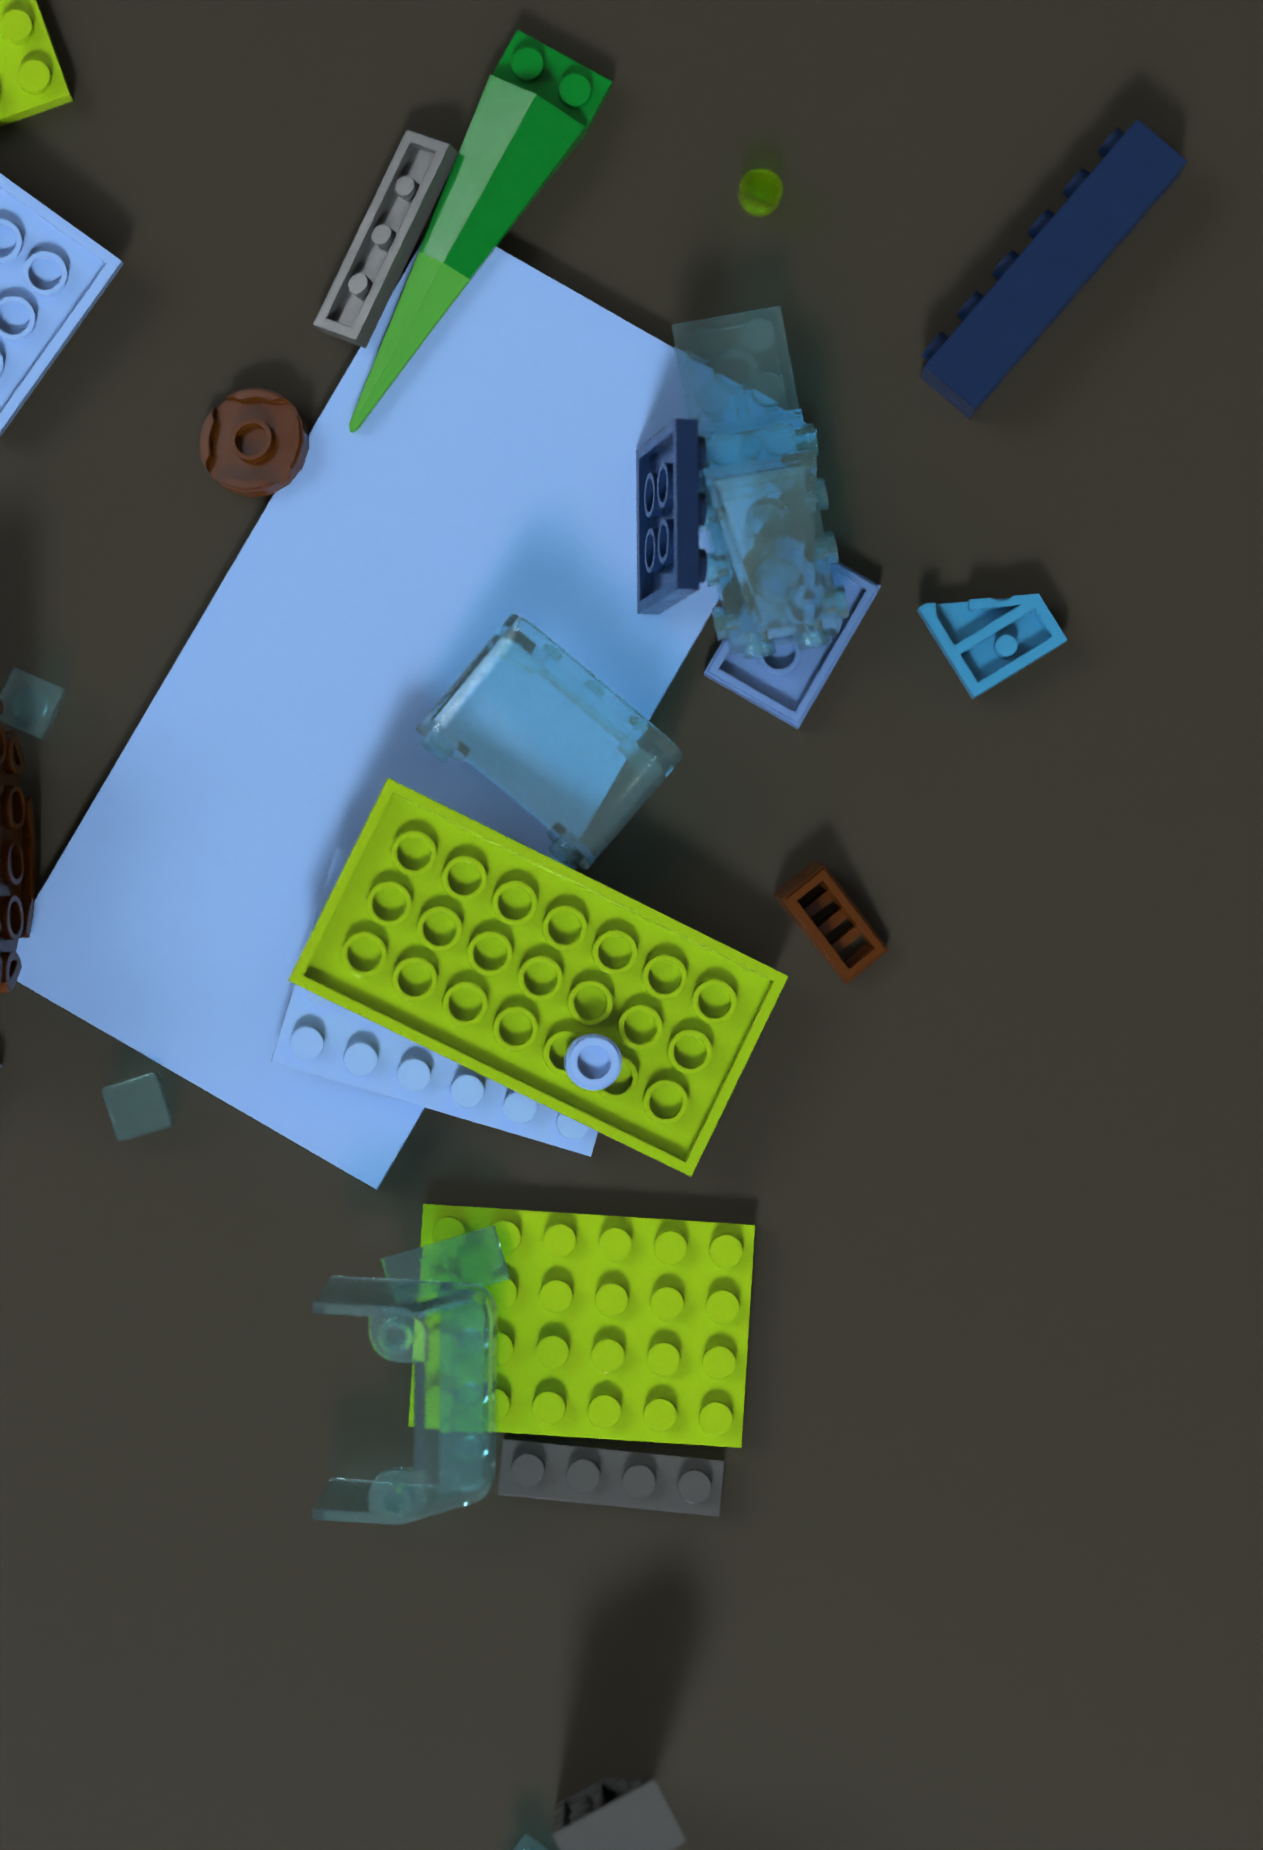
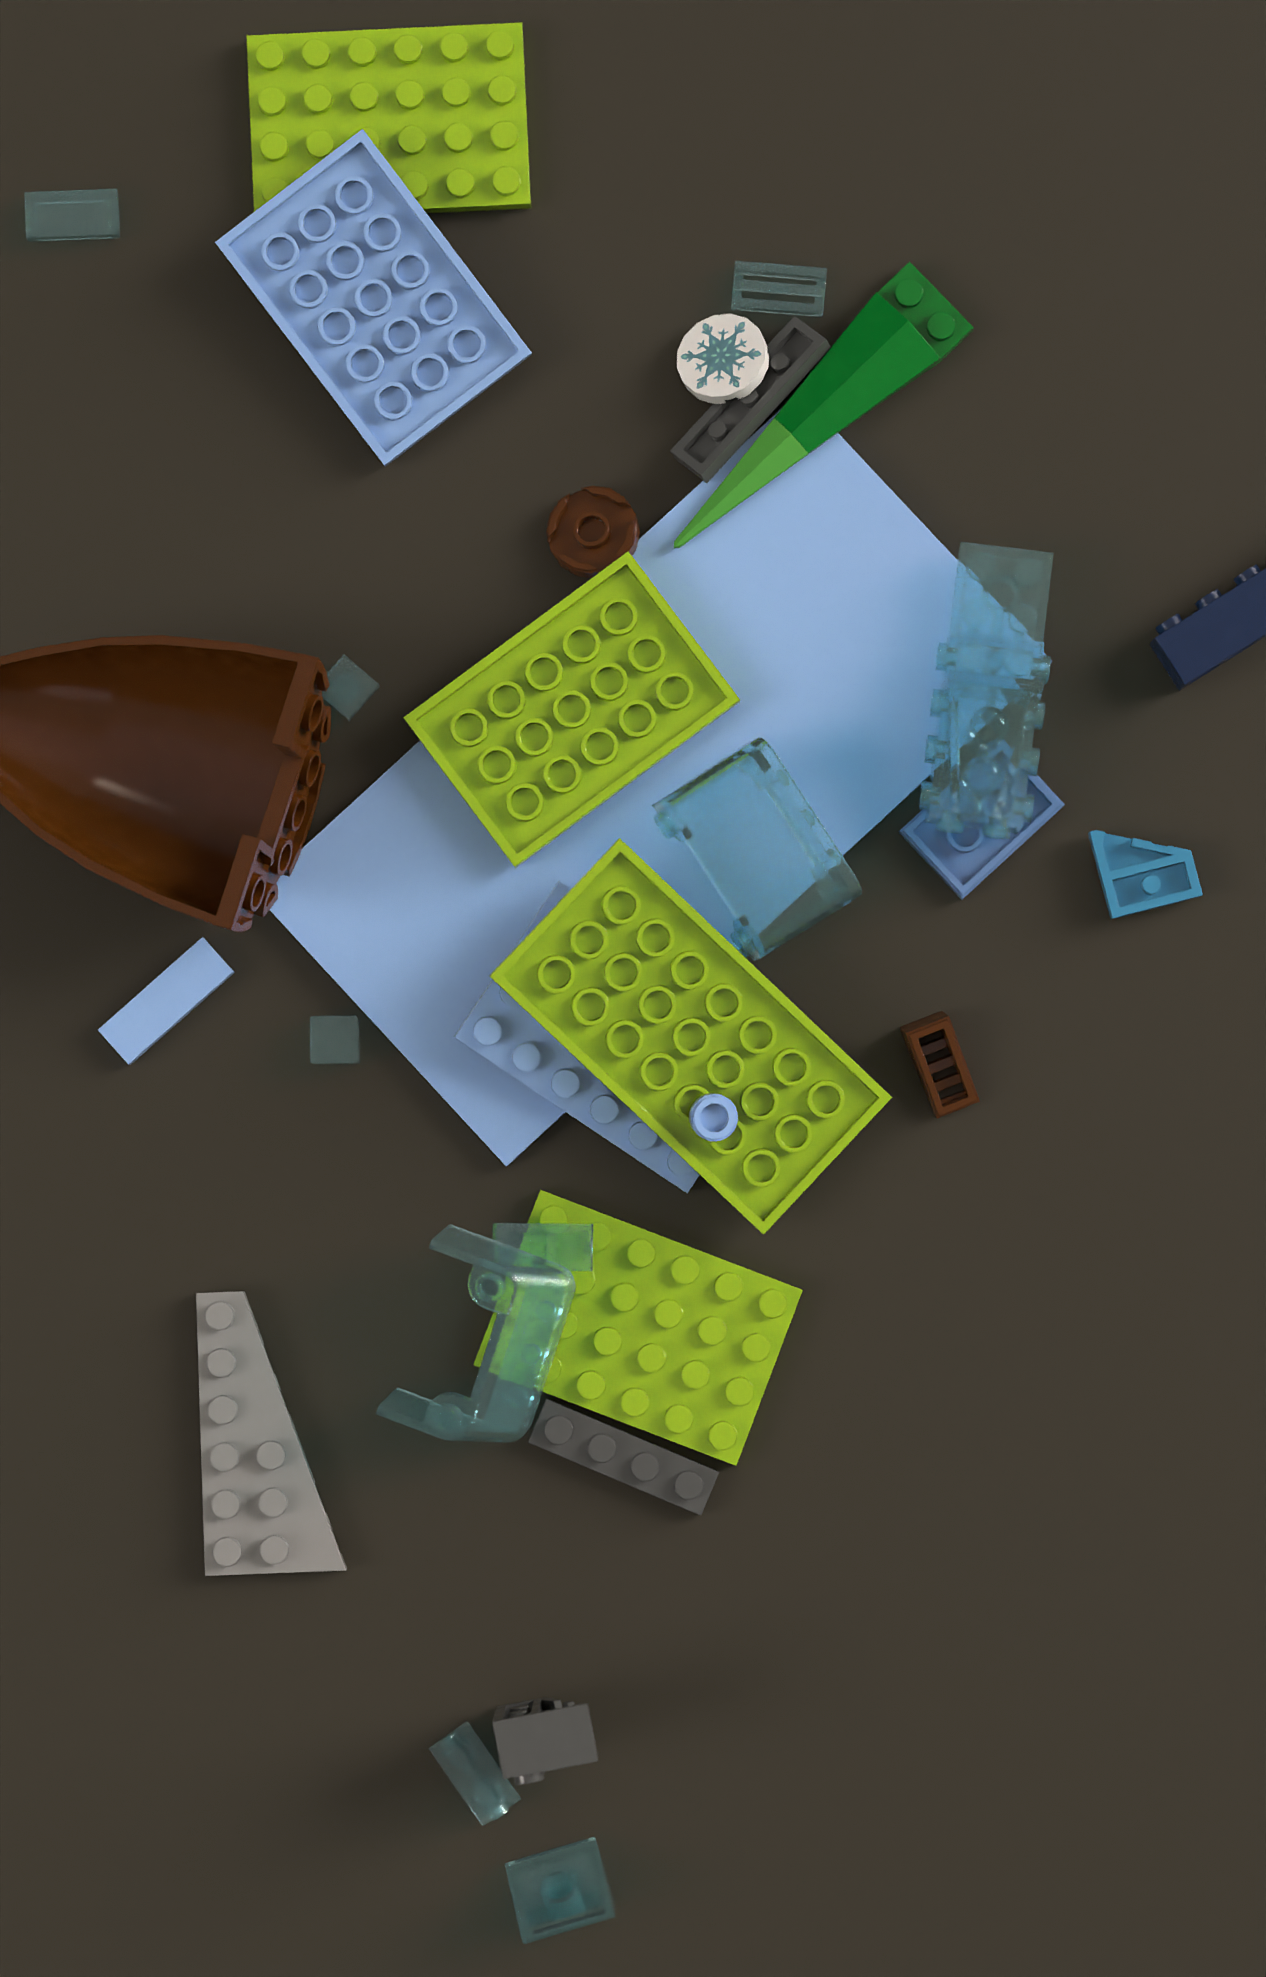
camera: 20 degrees right, 0 degrees up
(199, 1627) = (255, 1476): none -> light grey wing
(291, 649) = (571, 709): none -> lime plate
(340, 202) = (722, 358): none -> white tile
(378, 85) = (780, 271): none -> clear light blue tile
(670, 516) = (910, 698): dark blue plate -> none
(762, 185) = (1070, 449): clear neon green hinge -> none

